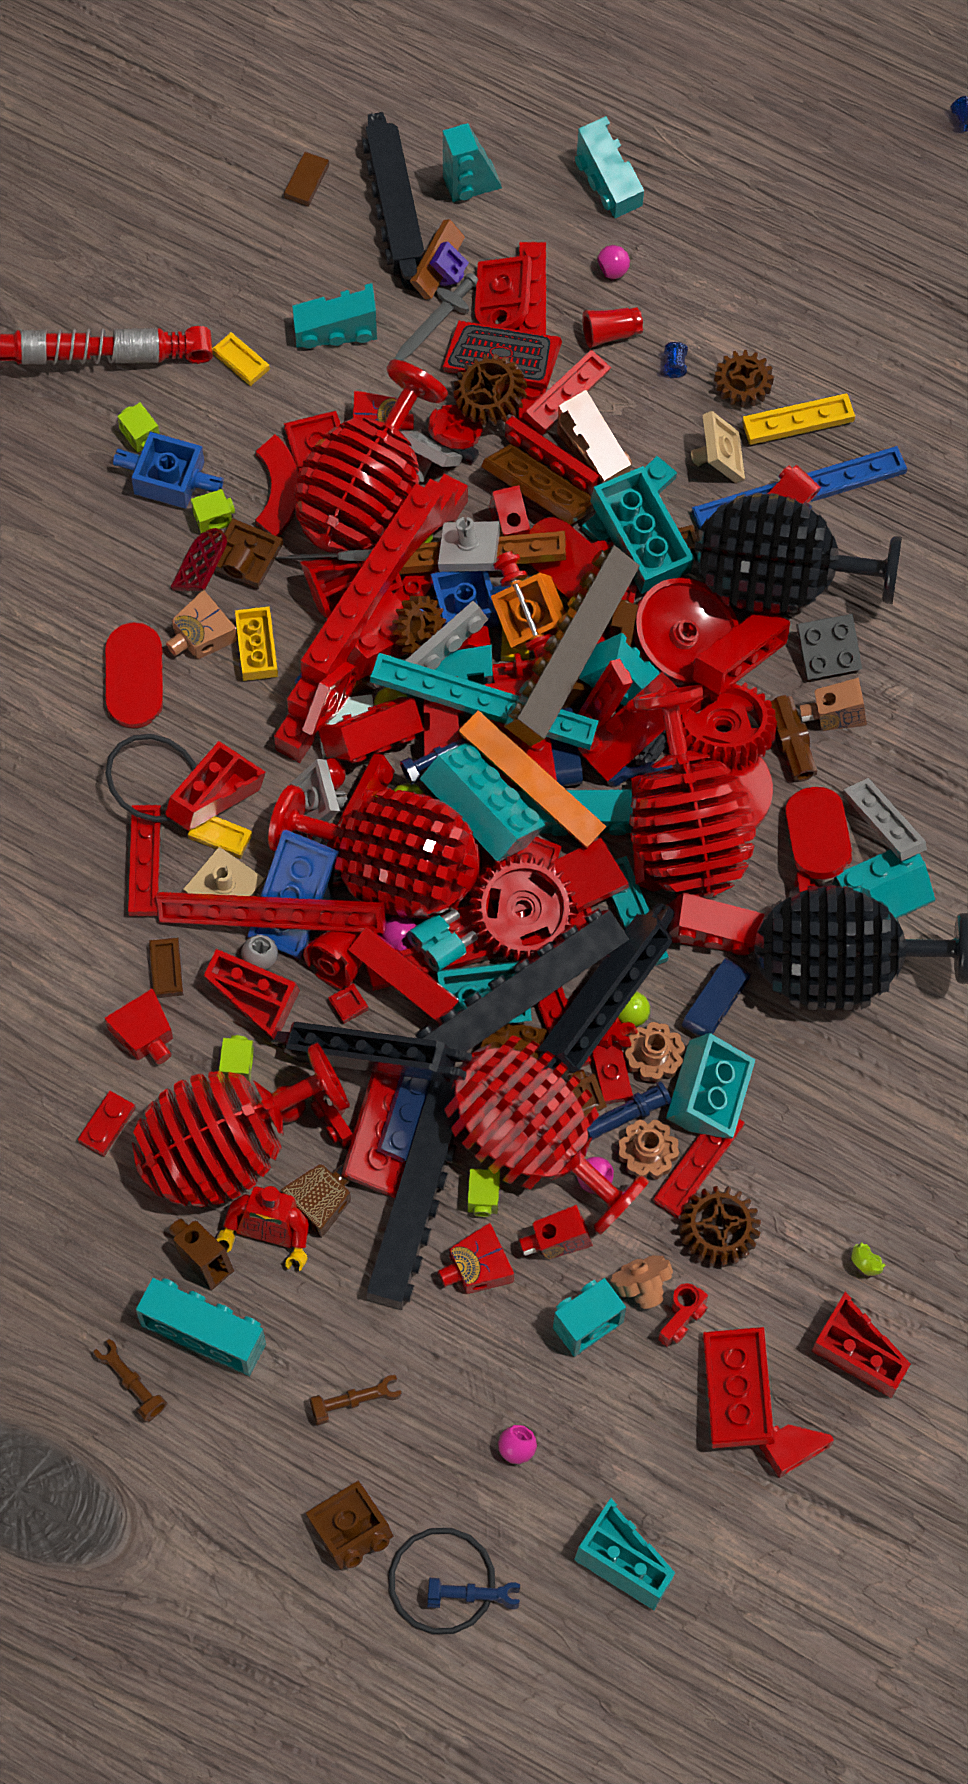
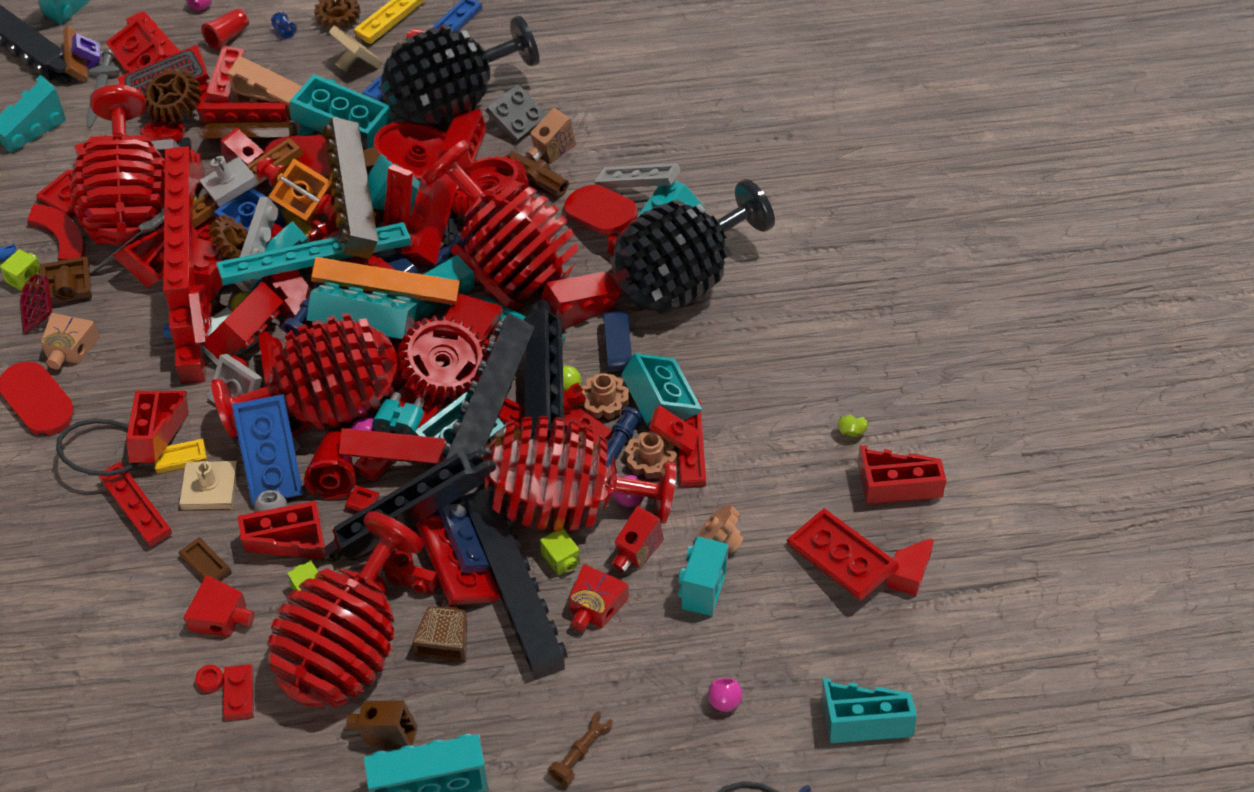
camera: 35 degrees left, 15 degrees down
(91, 1091) = (209, 679): none -> red tile
(256, 643) = (117, 327): yellow piece -> none
(270, 912) = (257, 472): red tile -> none
(270, 1218) = (418, 667): red torso -> none
(676, 1327) = (762, 535): red plate -> none
(683, 1143) = (673, 429): none -> red plate
(708, 1228) = (739, 477): reddish brown gear -> none

